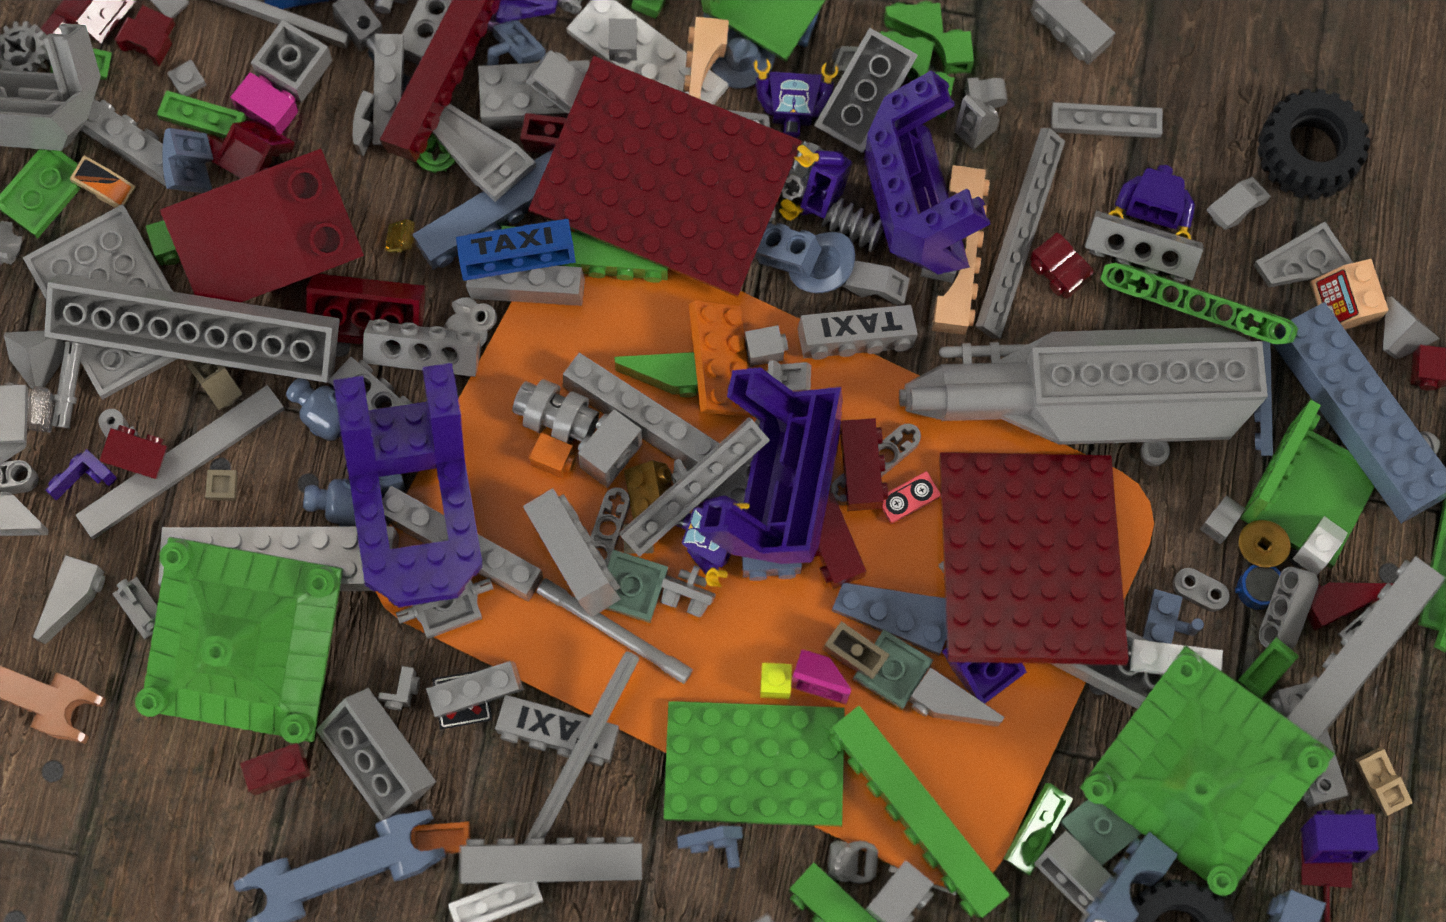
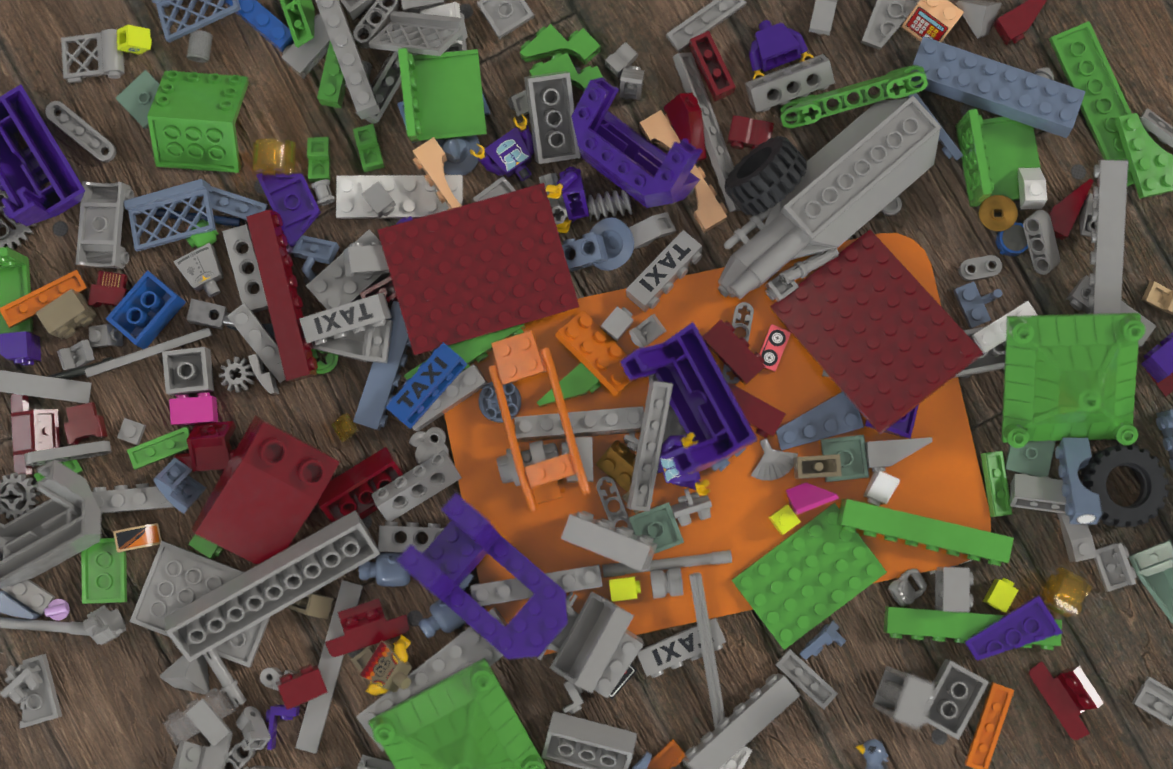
camera: 30 degrees left, 10 degrees up
(50, 459) = (253, 729): none -> light grey leg
(114, 52) = (68, 453): none -> light grey beam
(236, 502) = (388, 667): none -> torso
(250, 447) = (364, 627): none -> dark red plate
(326, 103) = (237, 382): none -> light grey gear
(467, 643) = (591, 642): none -> light grey piece
(490, 123) = (346, 317): none -> light grey brick
(547, 619) = (624, 588): none -> neon yellow brick
(578, 330) = (489, 404): none -> sand blue tile
(596, 647) = (666, 583): none -> light grey wheel
(630, 298) = (516, 360): none -> orange plate
(663, 871) = (806, 679): none -> light grey plate
(811, 617) = (773, 463): none -> light grey hand
(907, 727) = (880, 488): none -> white slope
(967, 440) = (777, 290): none -> light grey bracket
(1003, 437) = (802, 268): none -> light grey pin
(1004, 200) = (687, 120): none -> dark red slope
(1040, 310) = (765, 176): none -> black tyre
(1074, 167) = (711, 66): none -> dark red brick
(1222, 519) = (961, 215): light grey leg -> none
(1268, 667) = (1055, 285): bright green tile -> none

